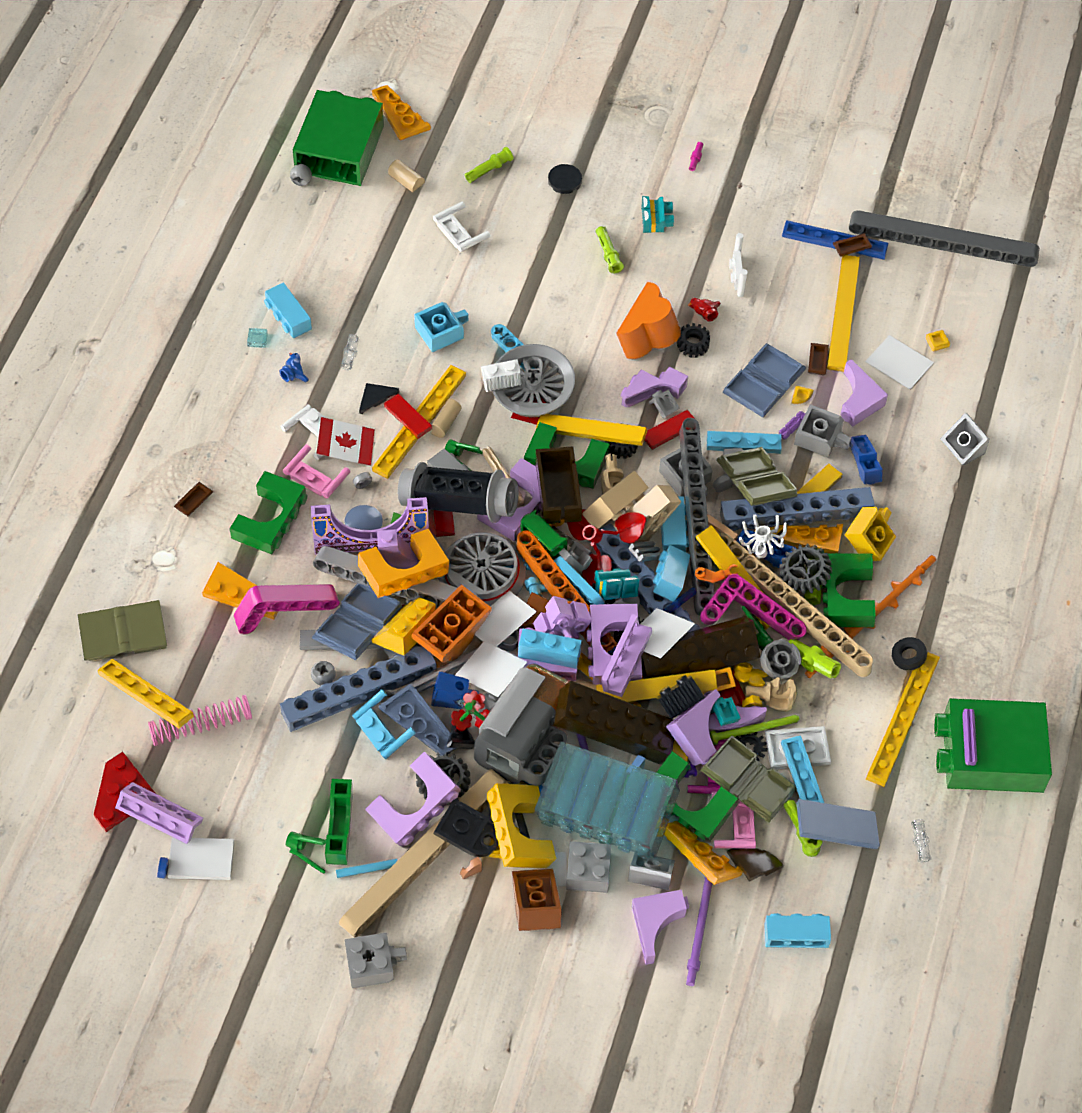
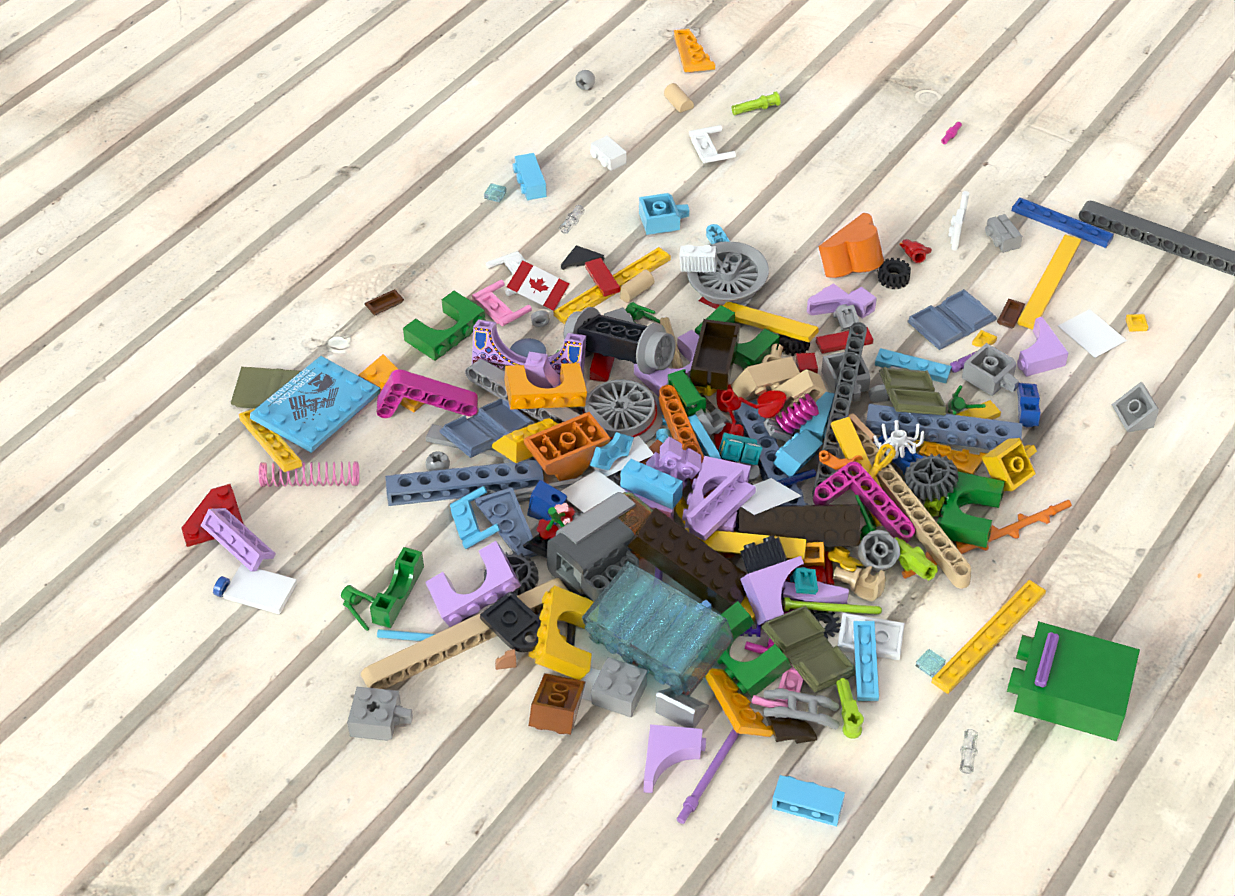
camera: 20 degrees right, 10 degrees down
(174, 639) = (315, 403): none -> medium azure plate
(293, 369) = (515, 221): blue animal -> none
(339, 136) = (629, 56): green brick -> none
(358, 262) = (608, 153): none -> white brick
(490, 625) = (617, 447): none -> medium azure tile
(565, 178) = (822, 127): black tile -> none
(611, 255) = (841, 192): lime pin -> none
(645, 469) = (806, 361): none -> red brick
(654, 214) = (896, 169): teal hips -> none
(660, 533) = (799, 415): none -> dark pink piece
(752, 700) = (838, 580): yellow tile -> none
(753, 571) = (878, 467): none -> yellow piece
(755, 849) = (791, 711): none -> light grey piece
(784, 267) = (1003, 233): none -> light grey brick
(801, 477) = (958, 403): none -> green plant
(837, 824) = (884, 711): sand blue tile -> none
(852, 245) = (1071, 228): reddish brown tile -> none
(859, 760) = (930, 663): none -> clear light blue tile
(909, 643) = (1014, 570): black tyre -> none

